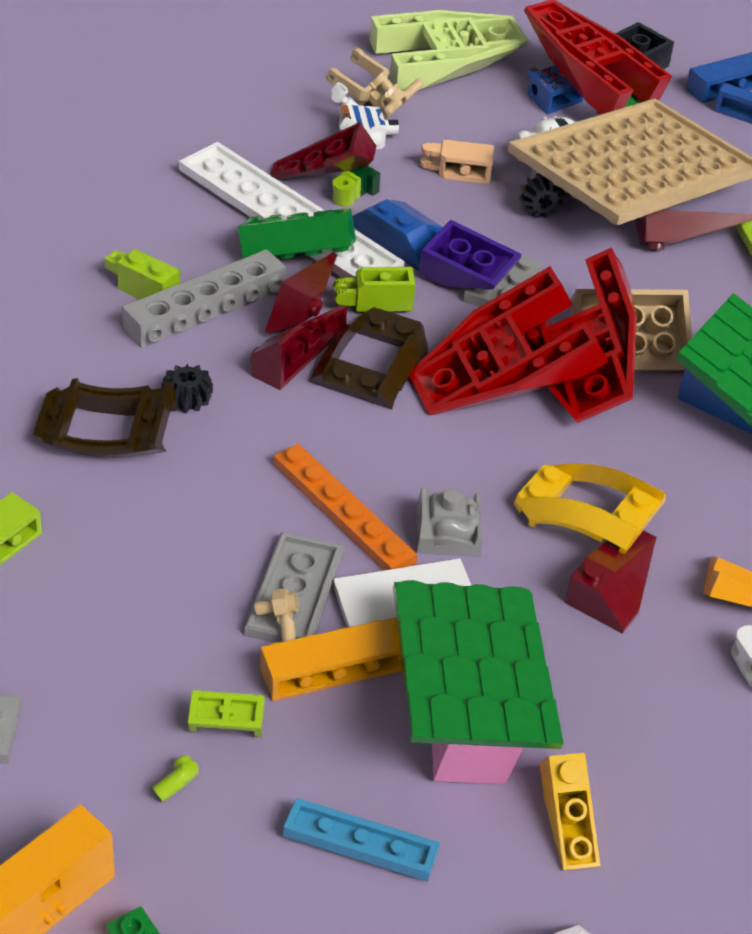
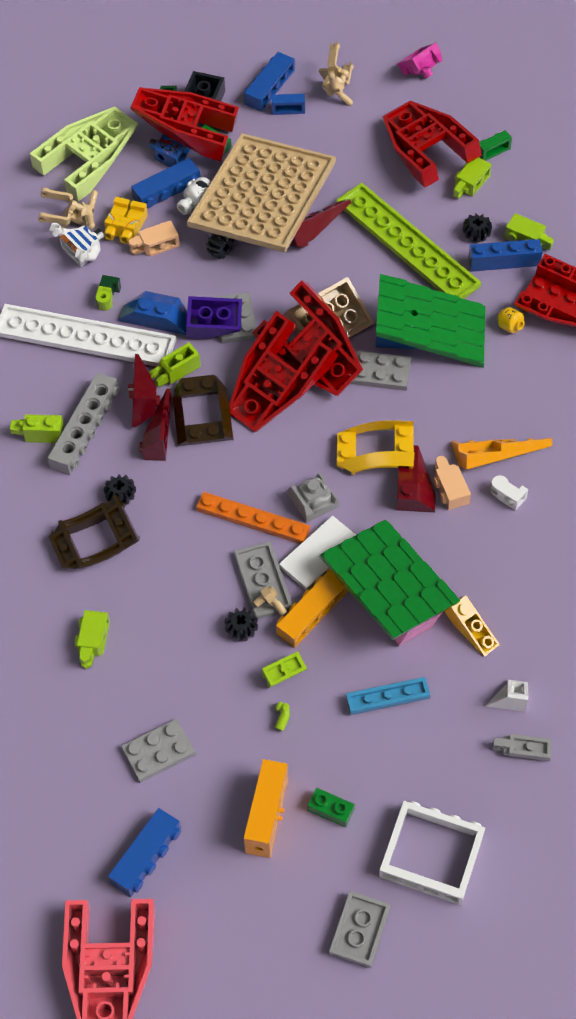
camera: 25 degrees left, 15 degrees up
(215, 624) = (241, 617): none -> black gear
(298, 233) = (106, 352): green wedge -> none
(333, 154) = (81, 284): dark red wedge -> none
(438, 123) = (125, 219): none -> yellow hips
(513, 114) = (165, 183): none -> blue brick
(666, 426) = (383, 370): none -> light grey plate
(671, 607) = (451, 484): none -> light nougat hinge

